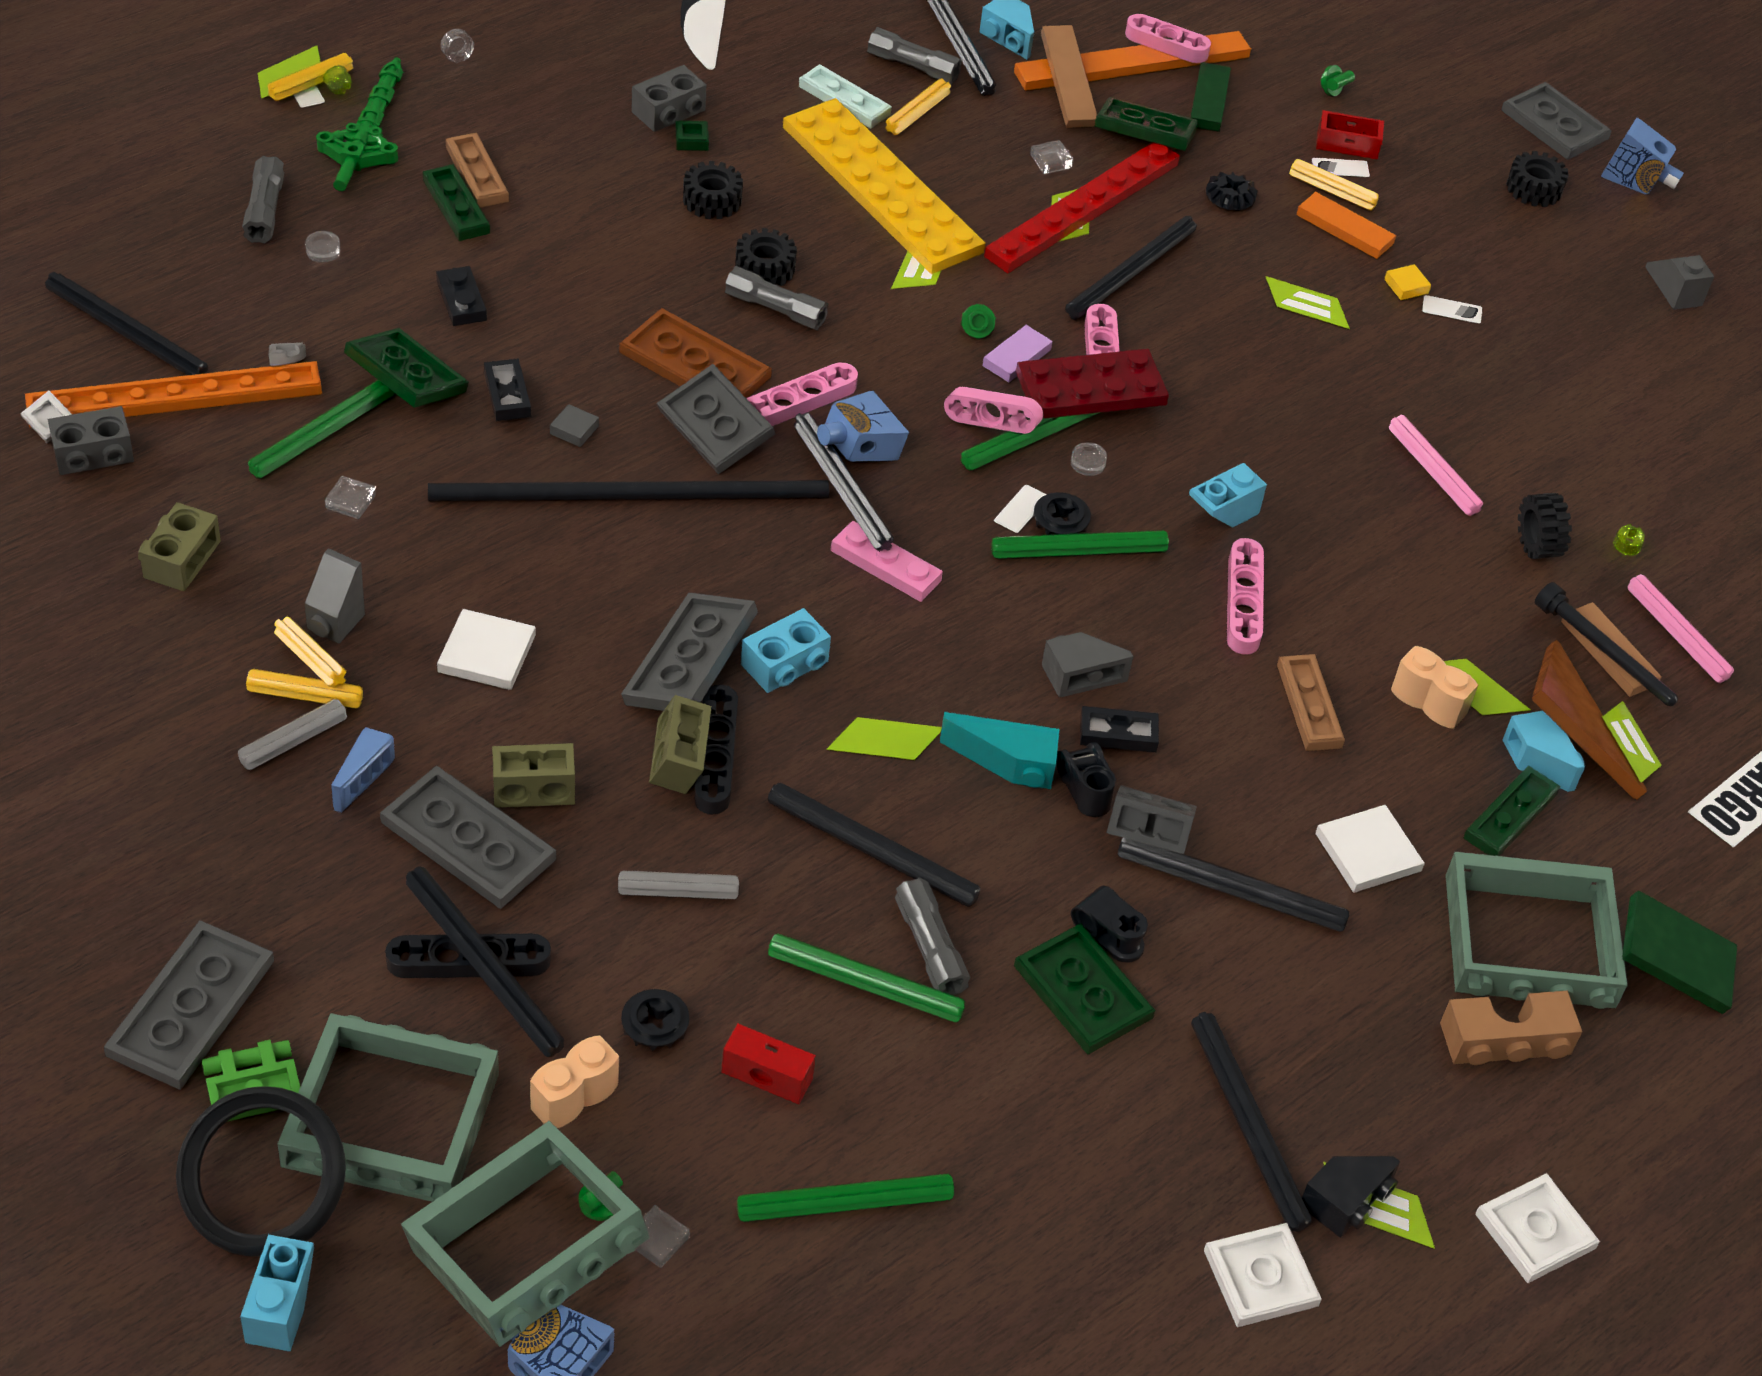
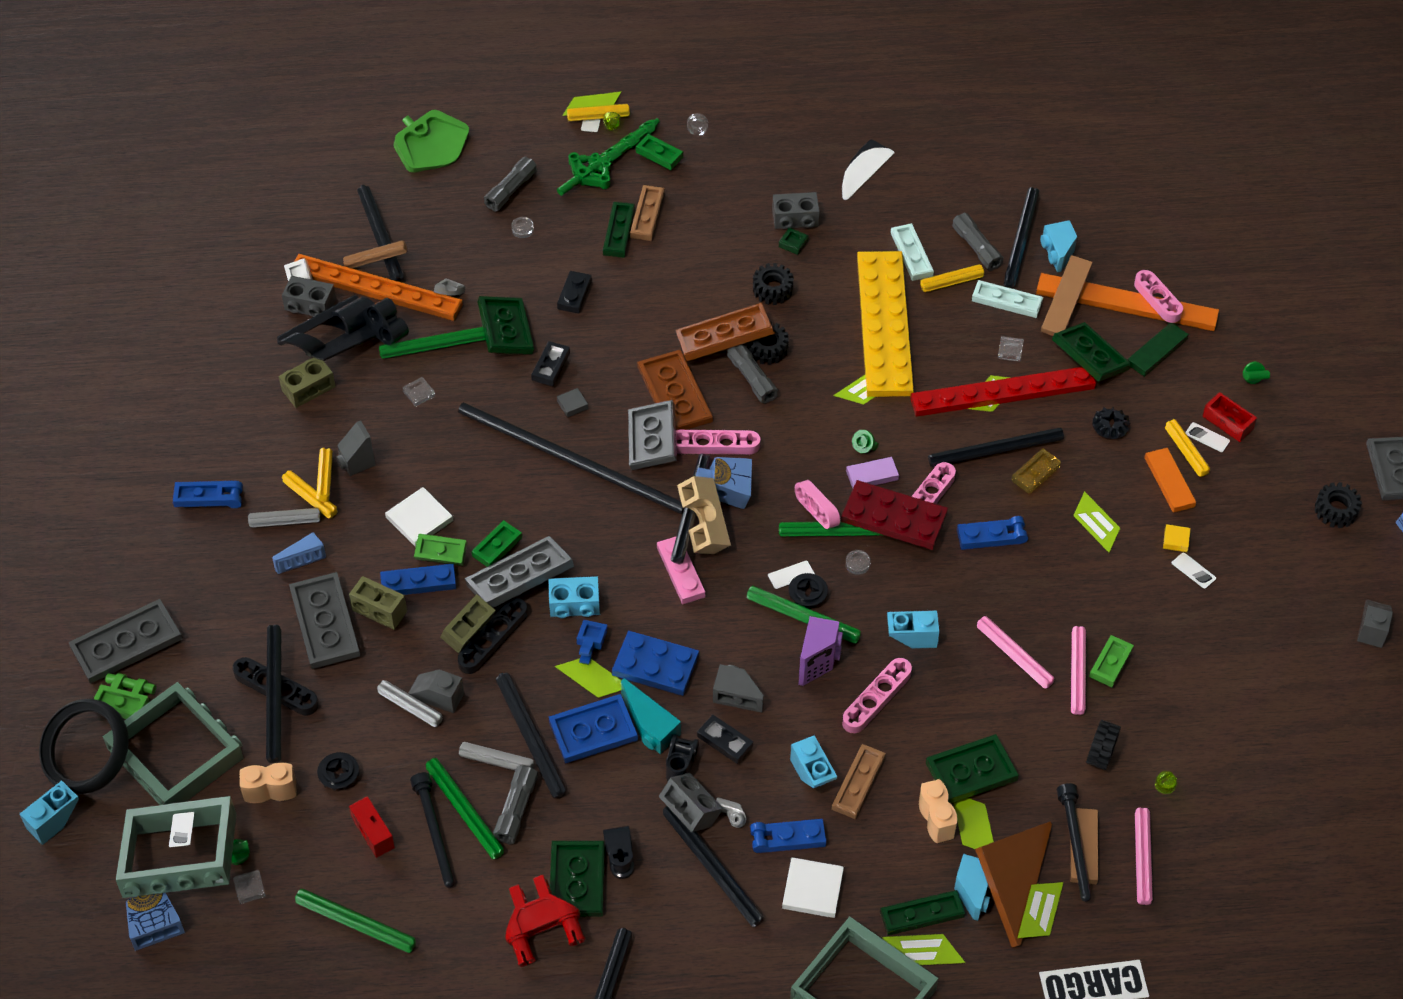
camera: 40 degrees right, 5 degrees up
(101, 189) = (430, 141): none -> bright green animal
(147, 349) = (375, 254): none -> medium nougat axle
(151, 753) = (207, 494): none -> blue plate
(202, 438) = (360, 321): none -> black panel
(434, 93) = (659, 152): none -> green plate
(520, 1200) = (181, 829): none -> white sticker
(556, 673) = (440, 549): none -> bright green plate
(561, 721) = (420, 579): none -> blue plate
(626, 634) = (497, 544): none -> green plate
(705, 845) = (438, 689): none -> dark grey slope
(706, 263) = (724, 331): none -> dark orange tile
(787, 977) = (422, 784): none -> black piece
(849, 894) = (493, 756): none -> light grey axle
(851, 688) = (590, 636): none -> blue plate
(865, 463) = (702, 497): none -> tan arch
(947, 796) = (593, 728): none -> blue plate
(954, 682) = (655, 663): none -> blue plate
(999, 106) = (1007, 299): none -> light aqua tile
(1089, 1053) = (539, 916): none -> red connector
(1143, 566) = (819, 649): none -> medium lavender slope
(1200, 273) = (1036, 471): none -> clear yellow plate
(1208, 810) = (734, 812): none -> light grey arm
(1210, 361) = (992, 533): none -> blue plate
(1251, 704) = (811, 762): none -> medium azure slope
(1289, 803) = (788, 835): none -> blue plate
(1352, 476) = (1015, 652): none -> bright pink axle
(1425, 617) = (973, 768): none -> dark green plate
(1462, 438) = (1111, 661): none -> bright green plate
(1556, 846) = (926, 949): none -> lime sticker

